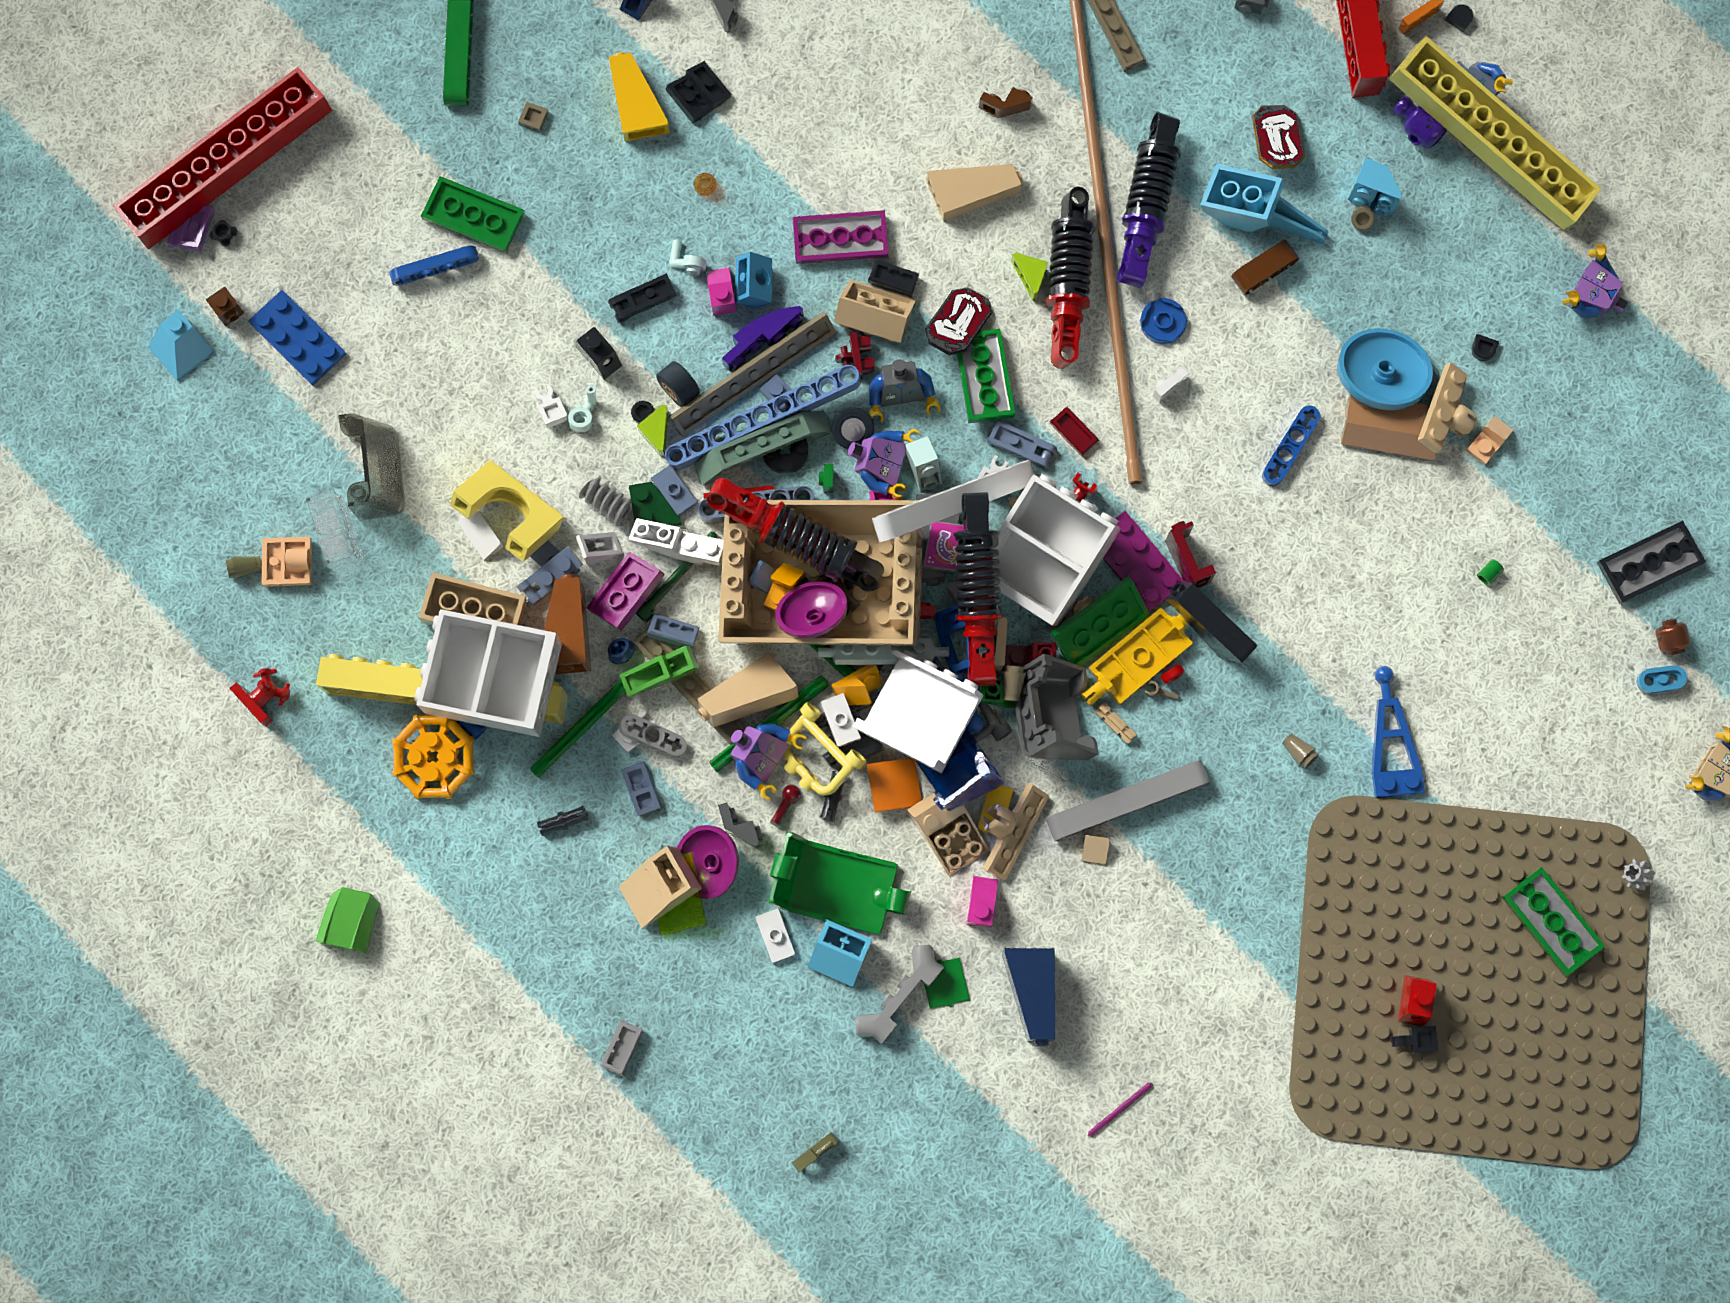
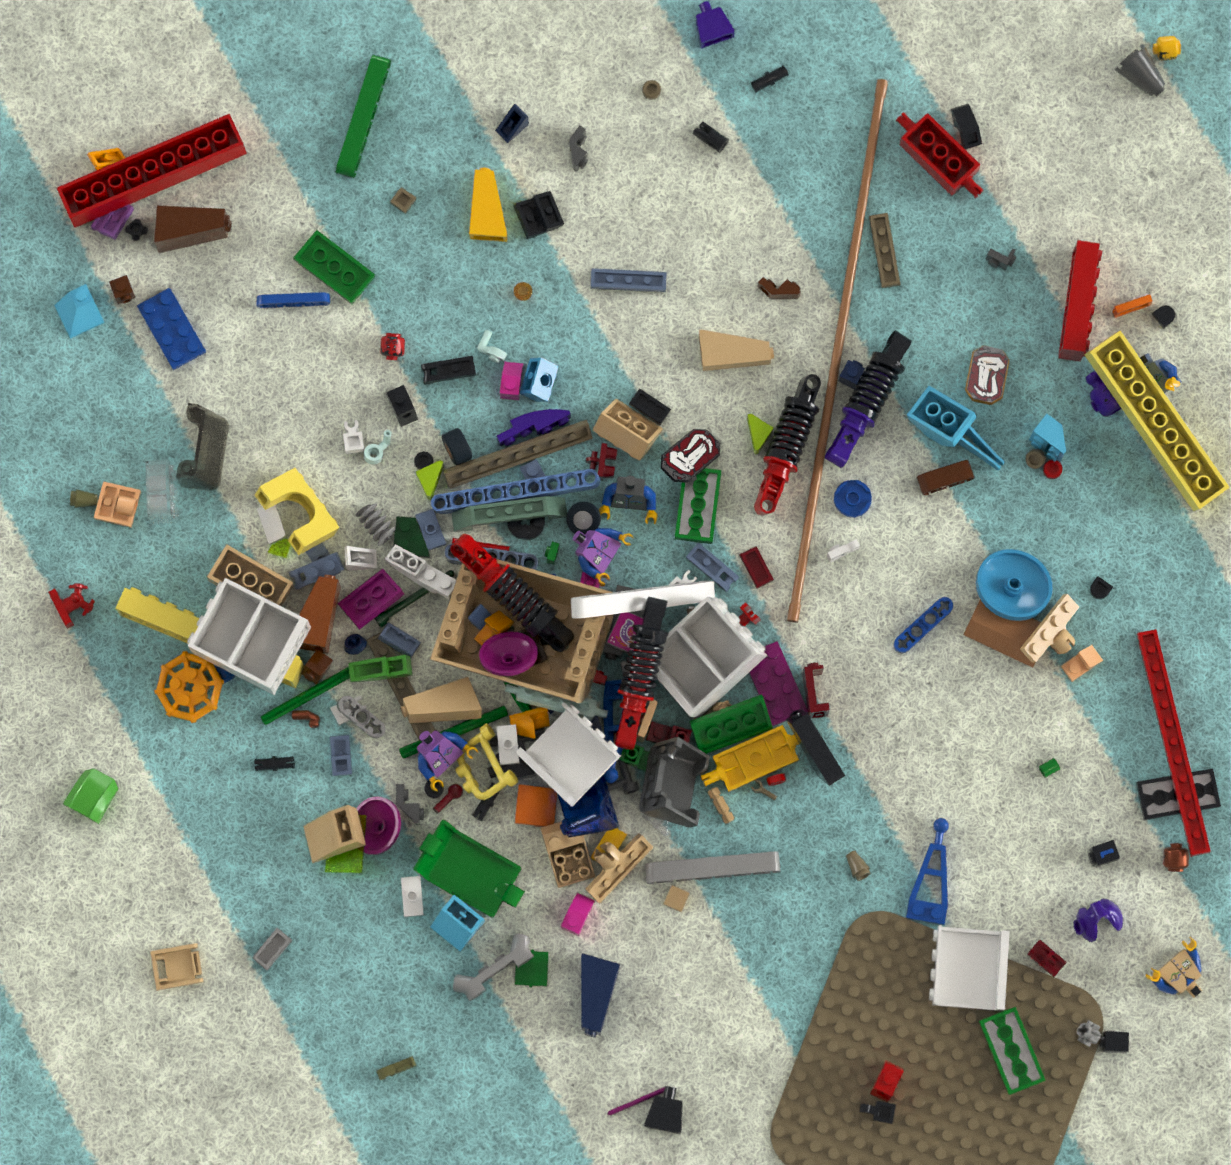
camera: 15 degrees right, 0 degrees up
(161, 157) = (105, 157): none -> light orange slope
(285, 210) = (189, 226): none -> reddish brown slope
(499, 561) = (280, 548): none -> clear neon green tile
(514, 1099) = (180, 966): none -> tan container
(567, 287) = (392, 346): none -> red head
(582, 690) = (317, 667): none -> reddish brown brick
(586, 751) = (306, 715): none -> copper arm
(764, 804) = (433, 794): none -> black tile
(826, 138) = (628, 280): none -> sand blue plate
(840, 237) = (617, 362): magenta piece -> none
(924, 464) = (630, 562): light aqua slope -> none
(1012, 682) = (648, 752): dark tan cone -> none
(1120, 177) = (851, 373): none -> dark blue brick
(1159, 1114) = (665, 1112): none -> black torso
(1385, 225) = (1052, 469): none -> red tile
(1473, 836) = (969, 968): none -> white panel
(1559, 798) = (1046, 958): none -> dark red hips
(1587, 655) = (1103, 854): none -> black brick
(1595, 740) = (1087, 919): none -> dark purple animal
(1596, 287) = (1202, 566): torso -> none
(1629, 503) = (1173, 743): none -> red plate
(1660, 679) = (1157, 888): dark azure plate -> none
(1671, 876) = (1114, 1042): none -> black brick

